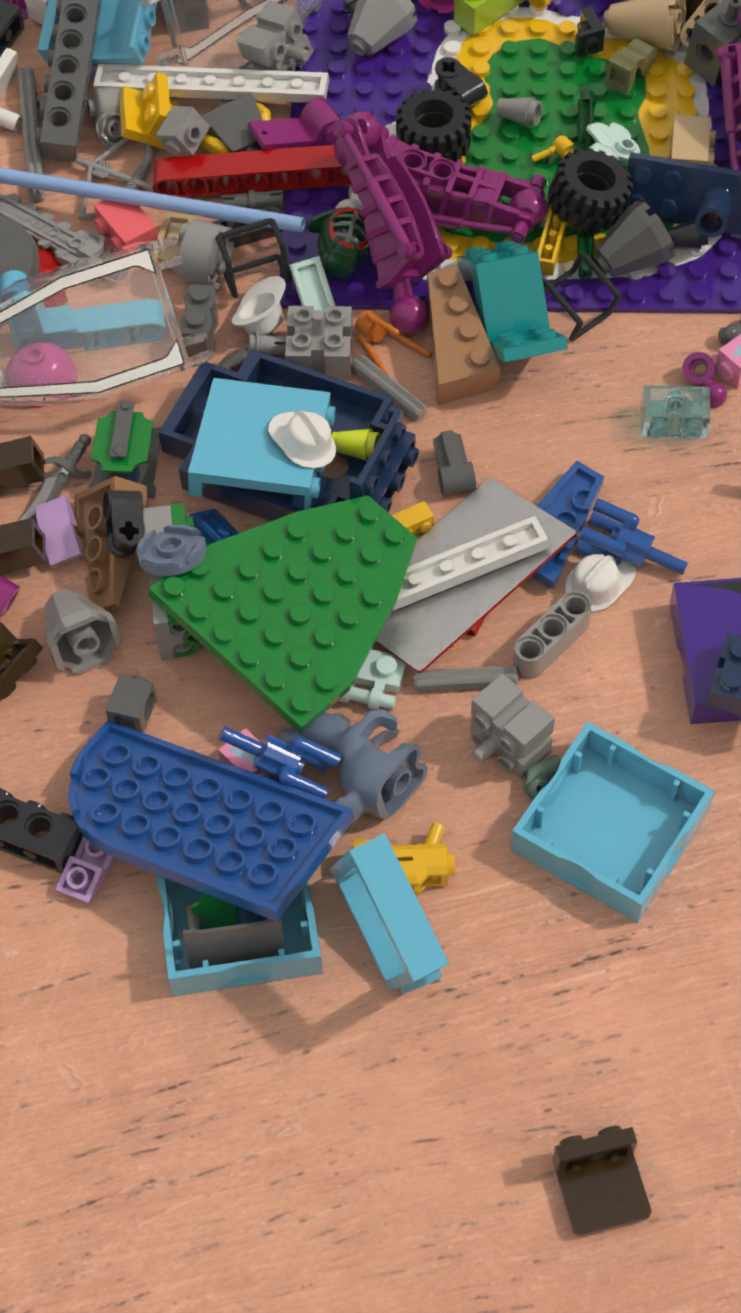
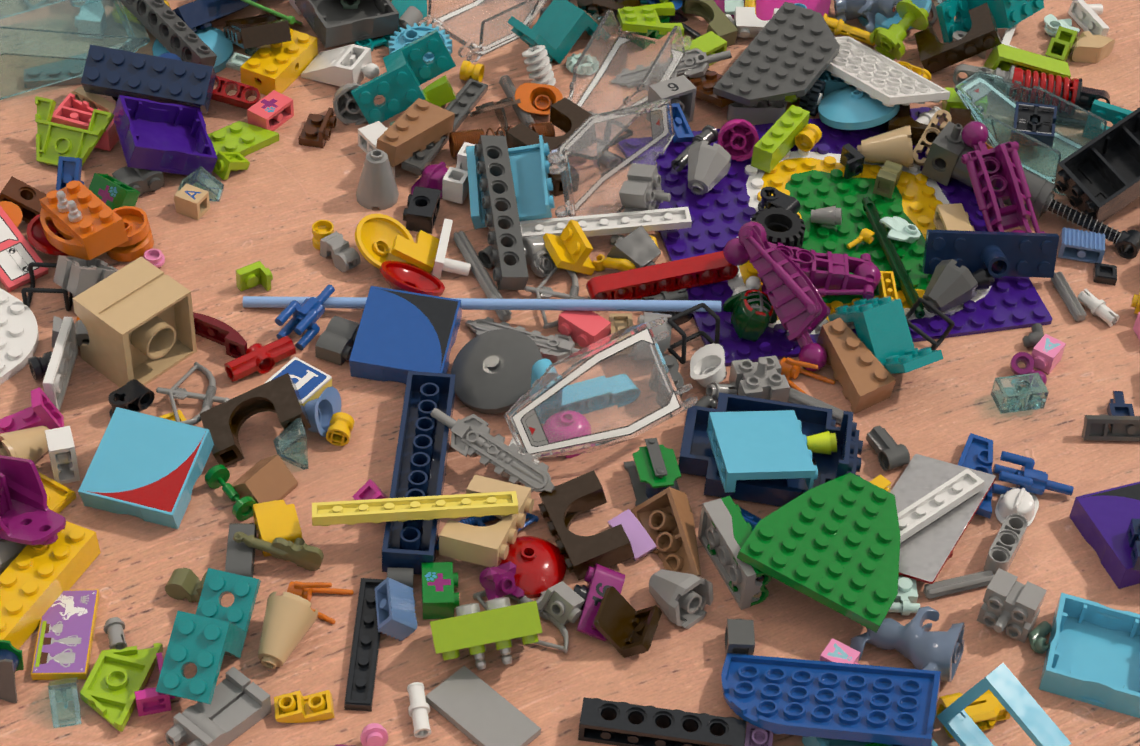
camera: 20 degrees left, 15 degrees down
(60, 478) = (615, 500): piece -> none
(123, 521) = (691, 513): black piece -> none
(171, 551) = (742, 524): sand blue tile -> none
(182, 130) = (605, 256): light grey brick -> none
(285, 758) = (873, 651): blue plant -> none
(303, 438) = (796, 437): white piece -> none
(310, 129) = (689, 244): magenta door -> none
(312, 284) = (737, 345): light aqua tile -> none
(589, 190) = (906, 258): black tyre -> none

